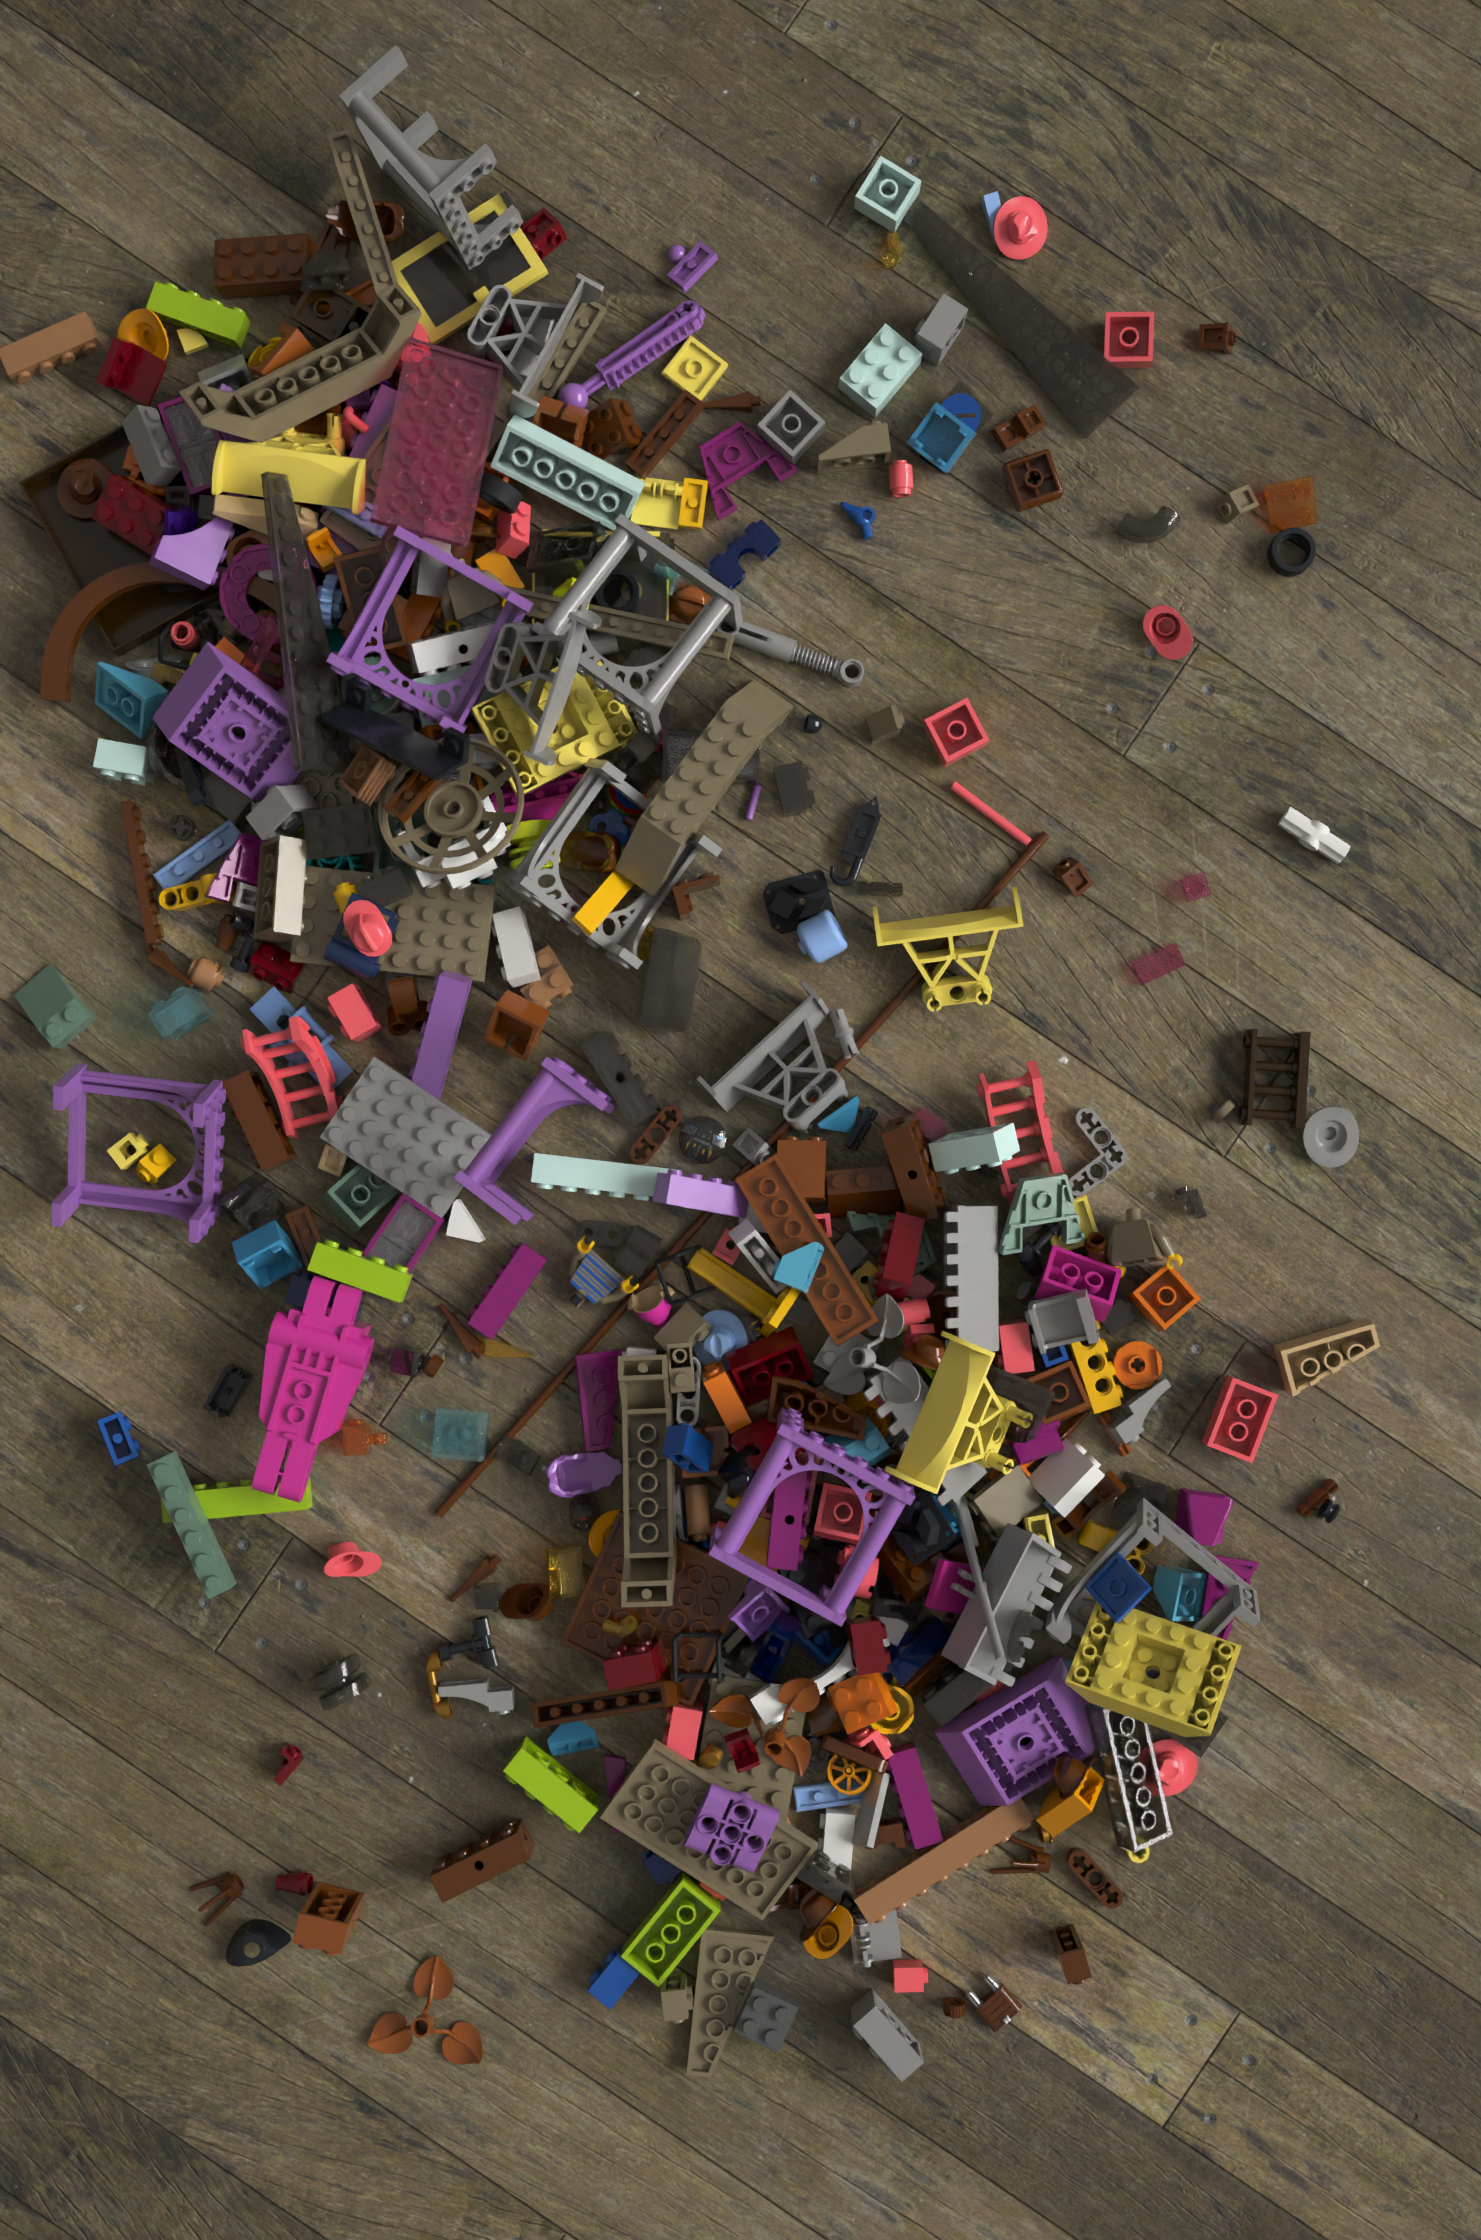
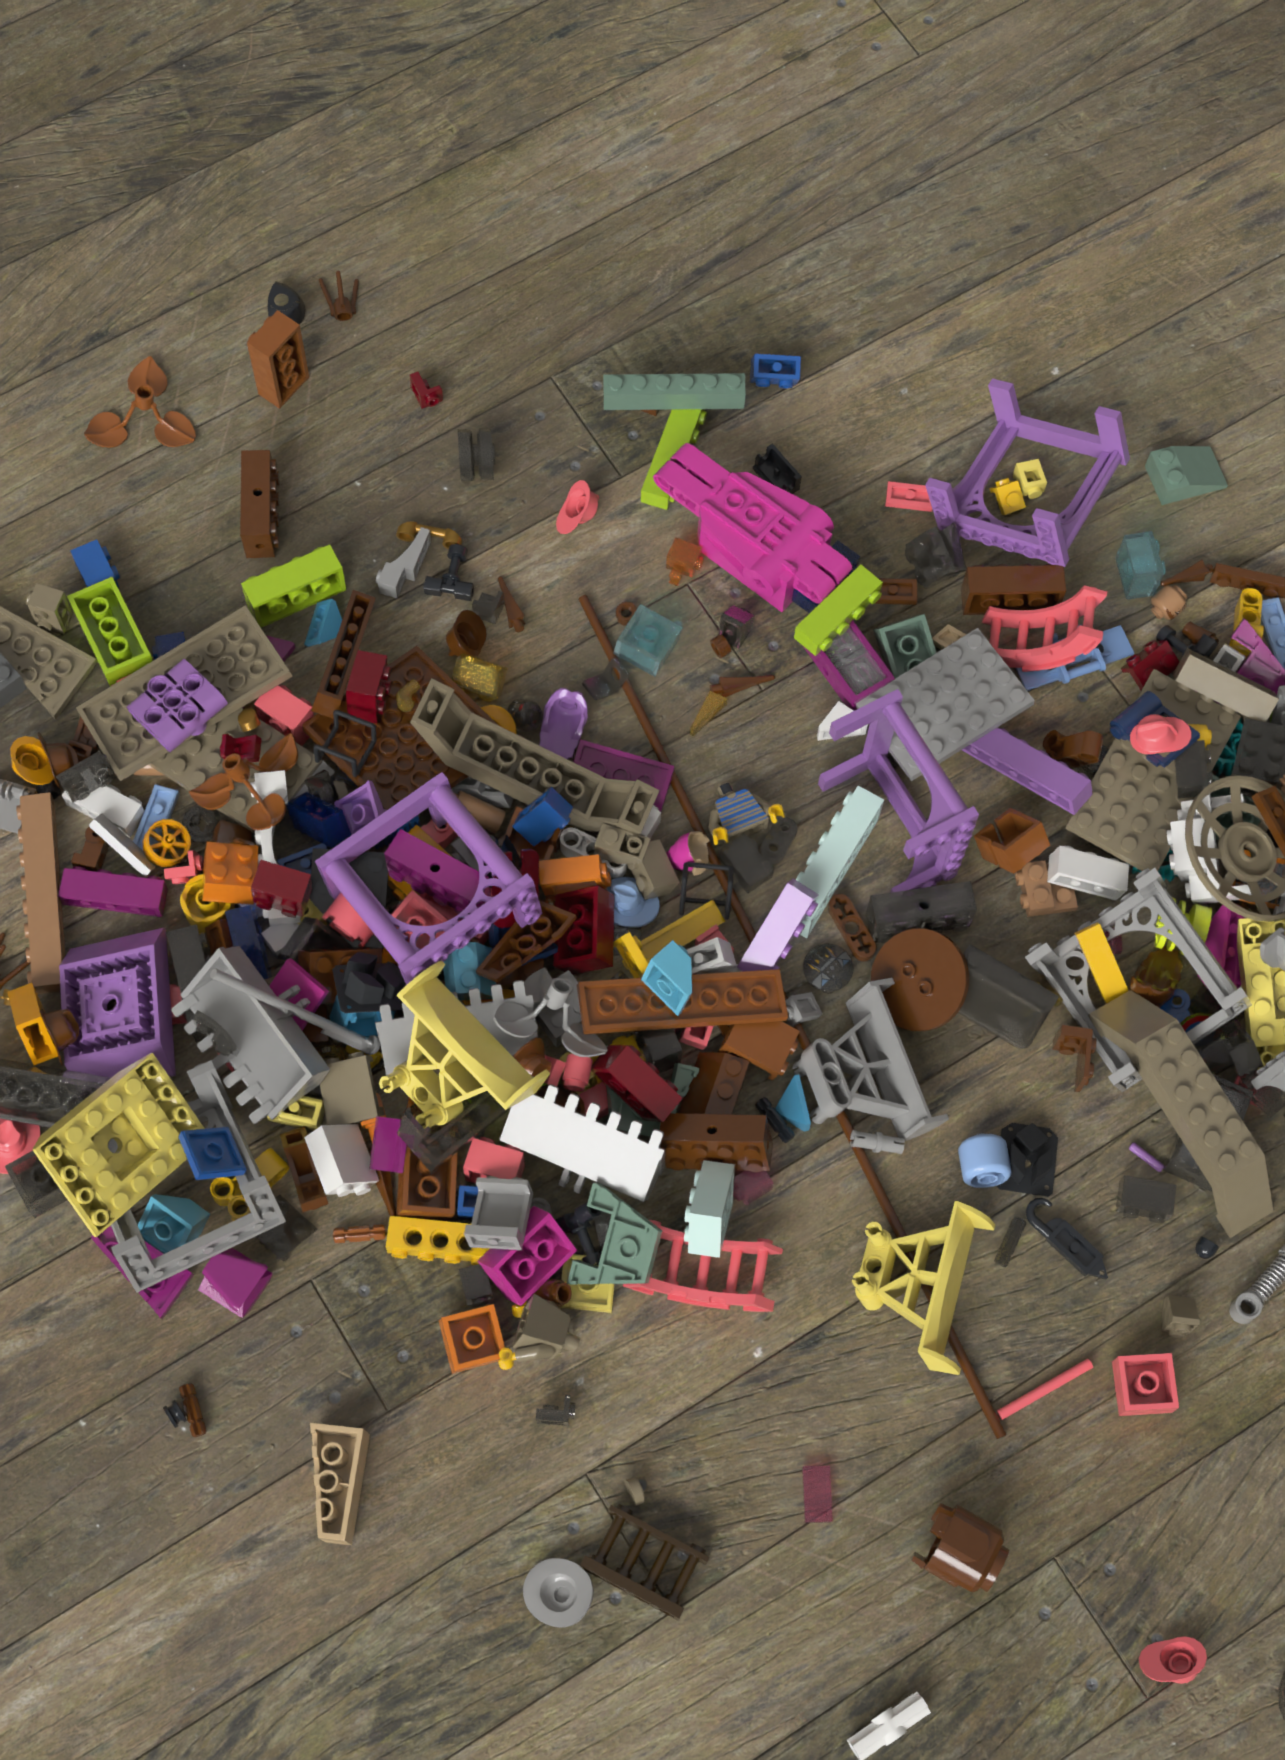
camera: 110 degrees right, 20 degrees down
(197, 1258) = (907, 496): none -> coral plate
(267, 1254) = (887, 546): dark azure container -> none
(297, 1883) = (318, 357): dark red cone -> none
(355, 1013) = (1081, 708): coral brick -> none
(429, 1467) = (625, 606): none -> reddish brown axle
(507, 1291) = (761, 735): magenta brick -> none
(681, 1049) = (928, 978): none -> reddish brown plate
(853, 1755) = (181, 848): reddish brown beam -> none
(1073, 876) = (946, 1443): reddish brown bracket -> none
(1103, 1157) = (639, 1344): light grey beam -> none
(1129, 1426) = (360, 1244): light grey slope -> none
(1148, 1372) = (409, 1272): orange plate -> none
(1159, 828) = (965, 1549): none -> reddish brown piece
(1195, 887) = (883, 1569): clear pink plate -> none
(1239, 1419) = (313, 1360): coral brick -> none

